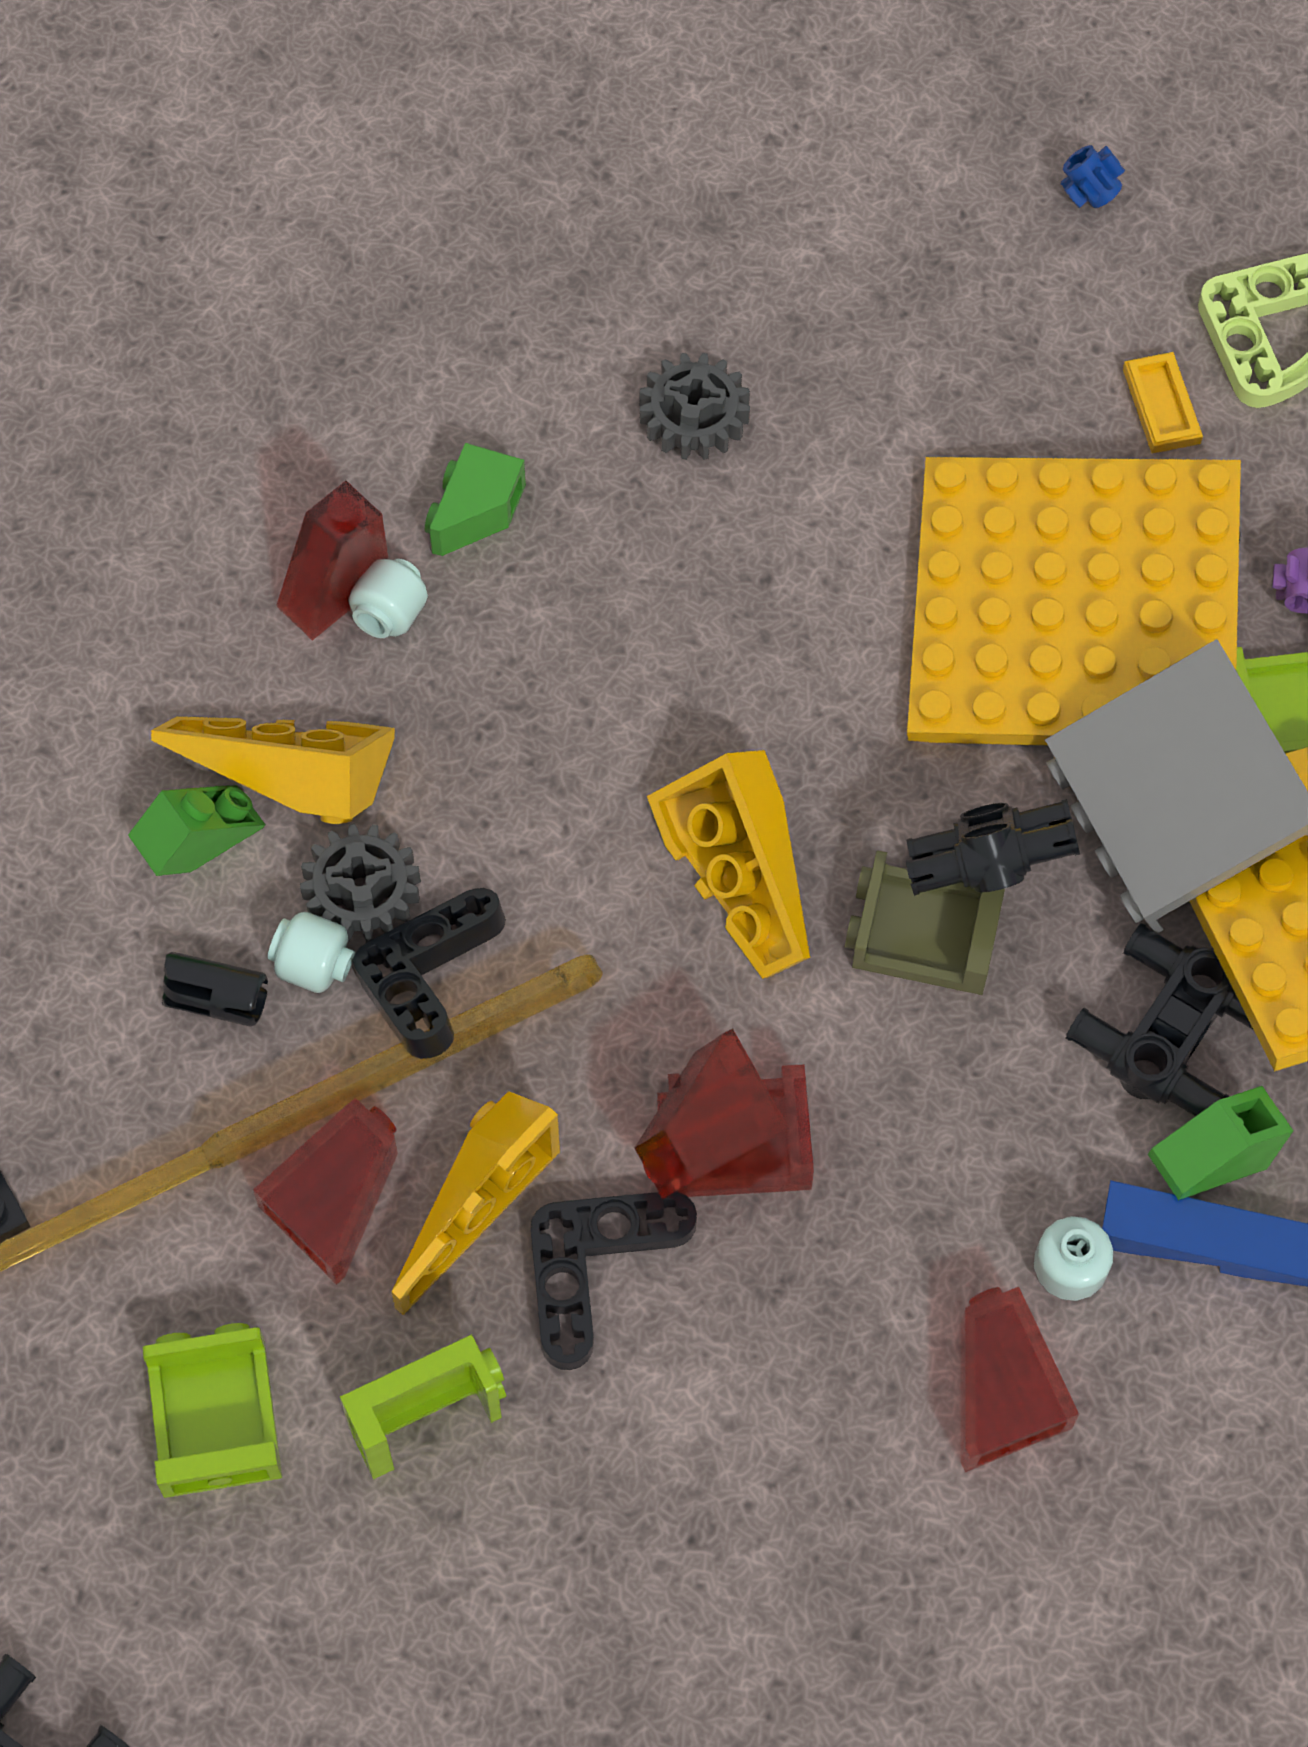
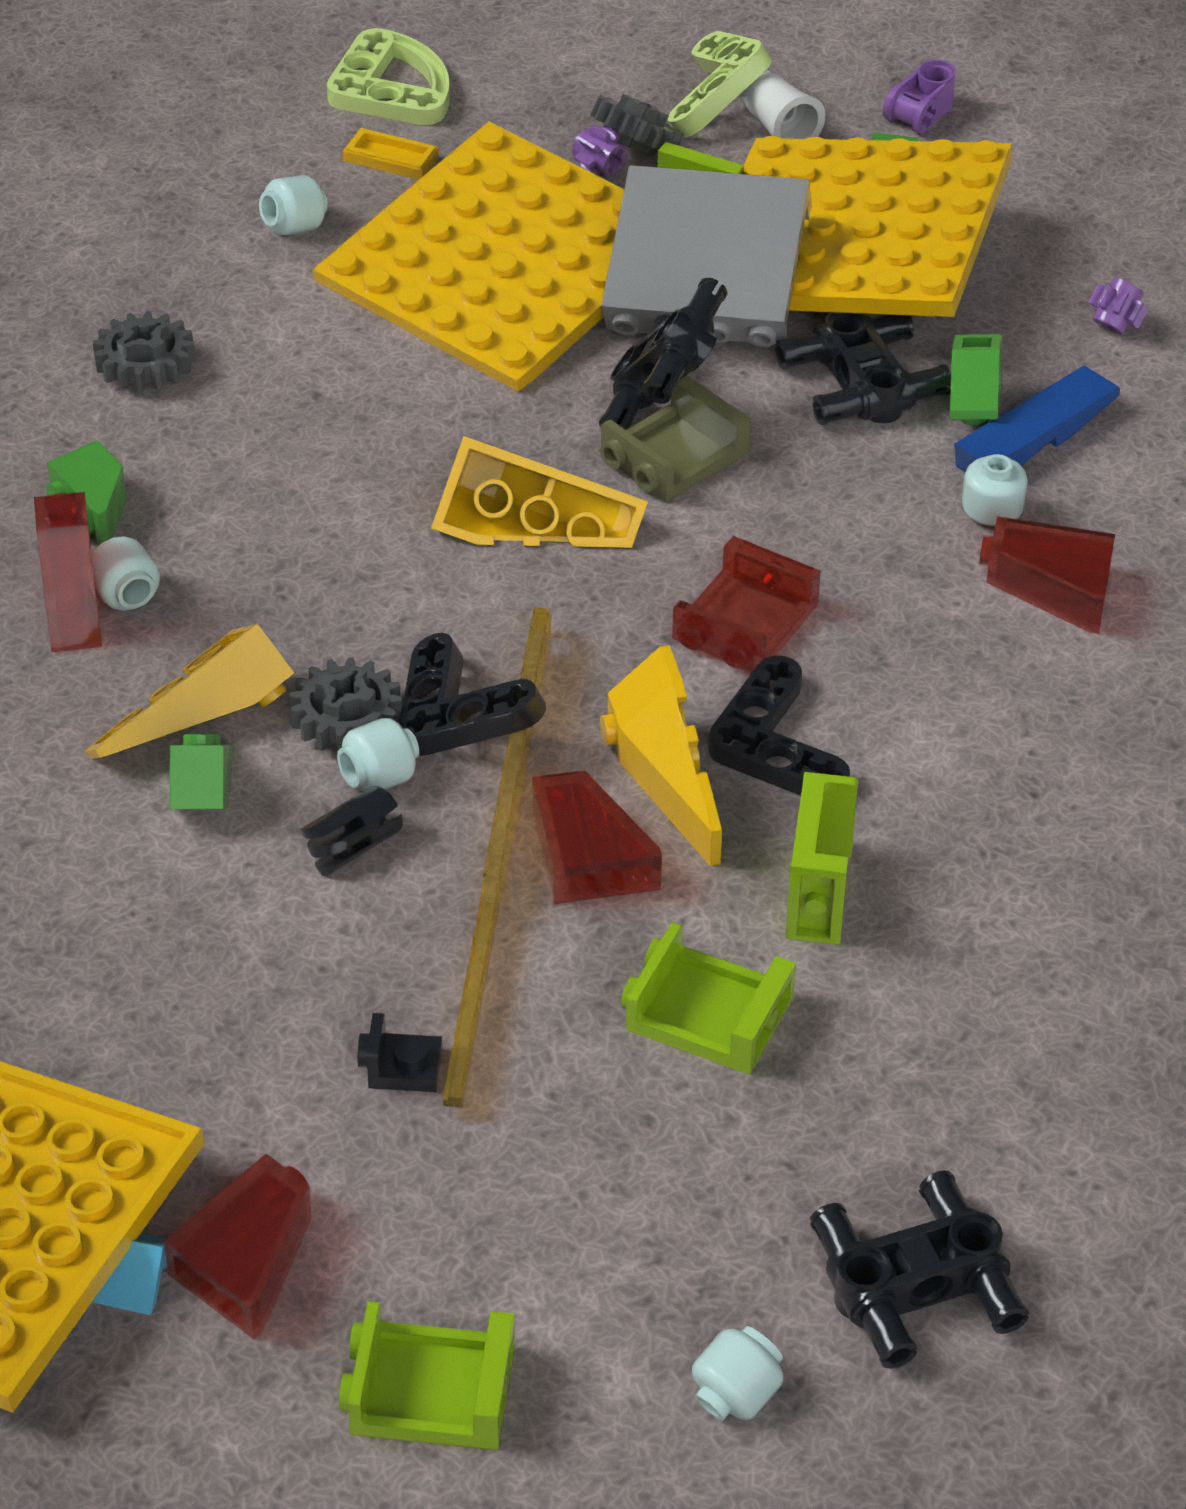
camera: 55 degrees left, 20 degrees down
(708, 1117) = (731, 591): clear red slope -> none
(999, 379) = (293, 205): none -> light aqua head
(1092, 176) = (188, 89): blue gear -> none

